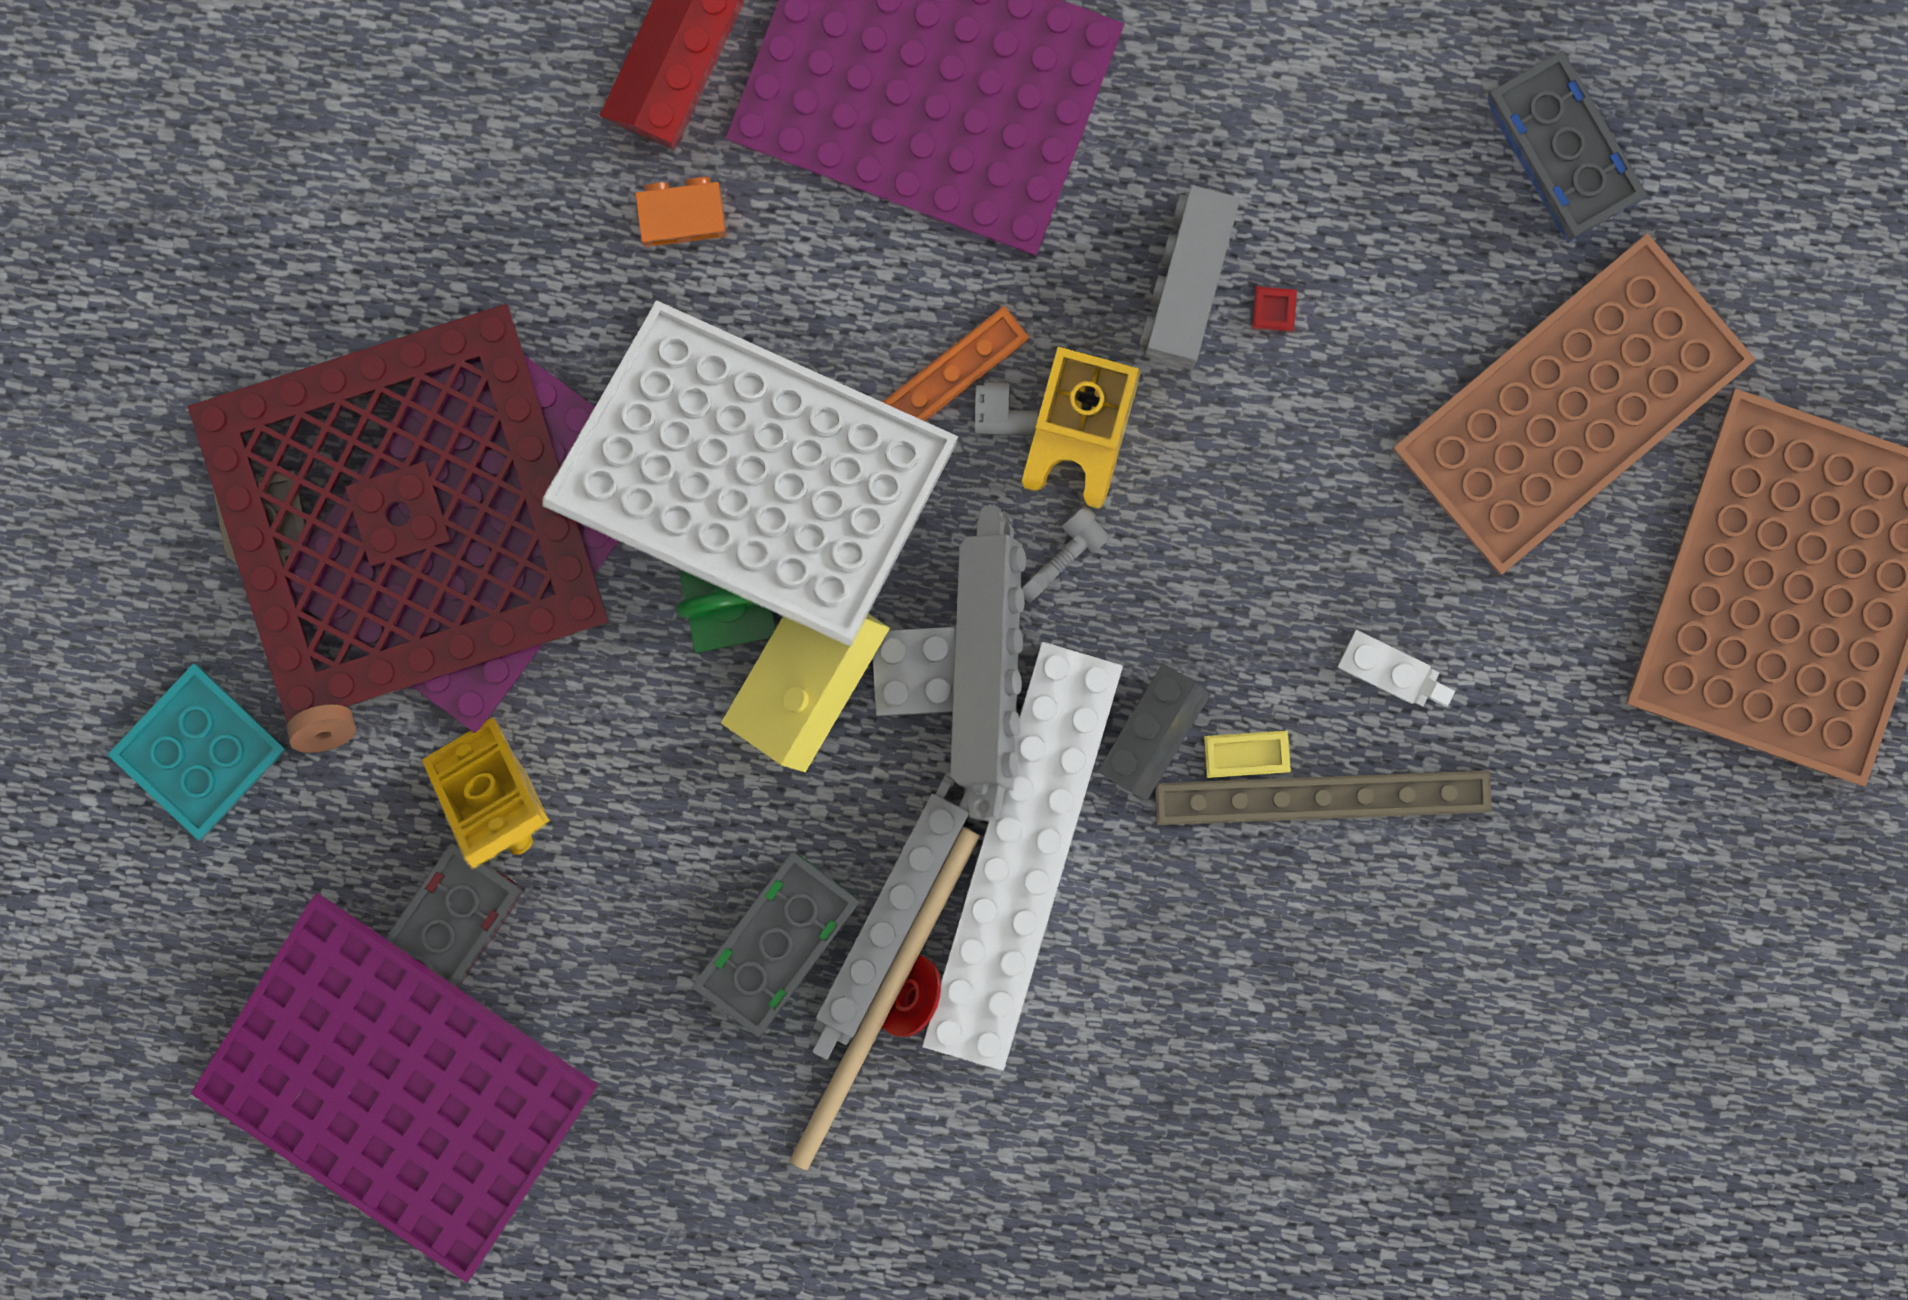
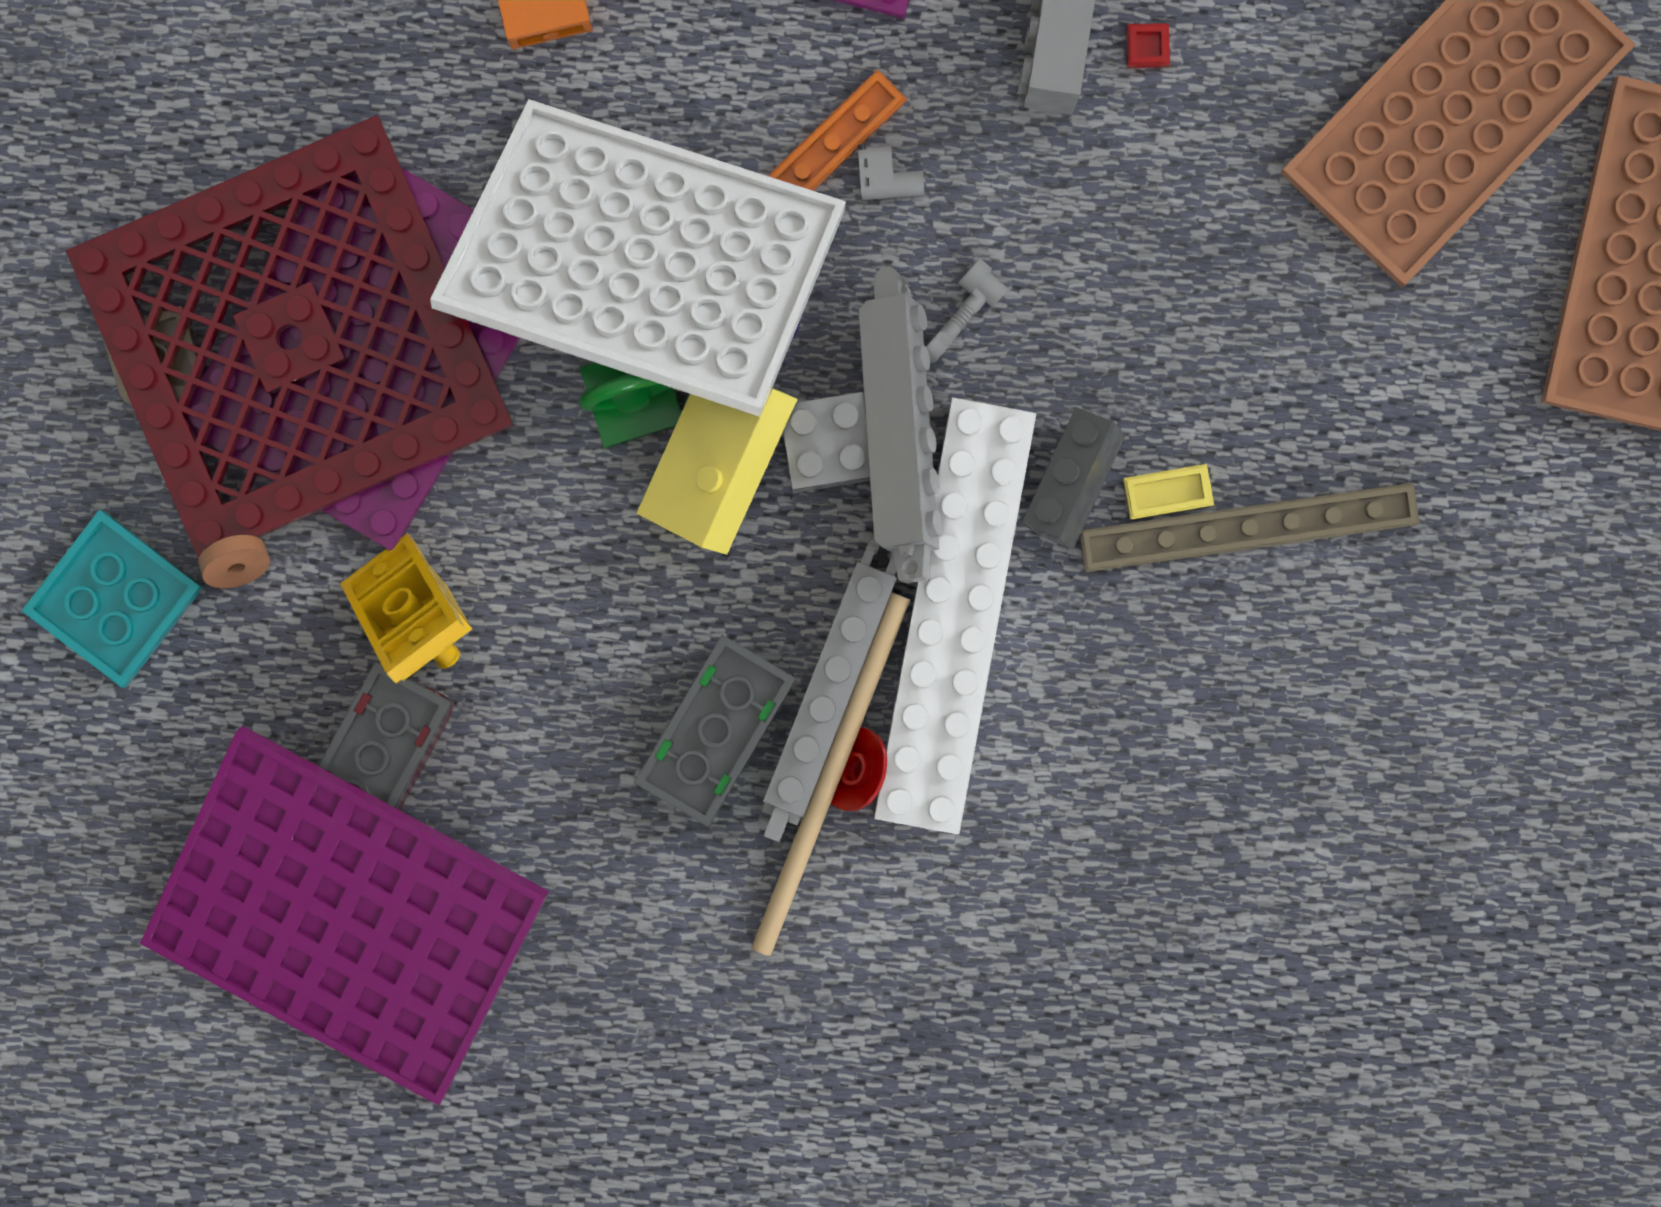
camera: 10 degrees left, 0 degrees up
(1077, 435) = (968, 187): yellow brick -> none
(1393, 671) = (1306, 394): white hinge -> none

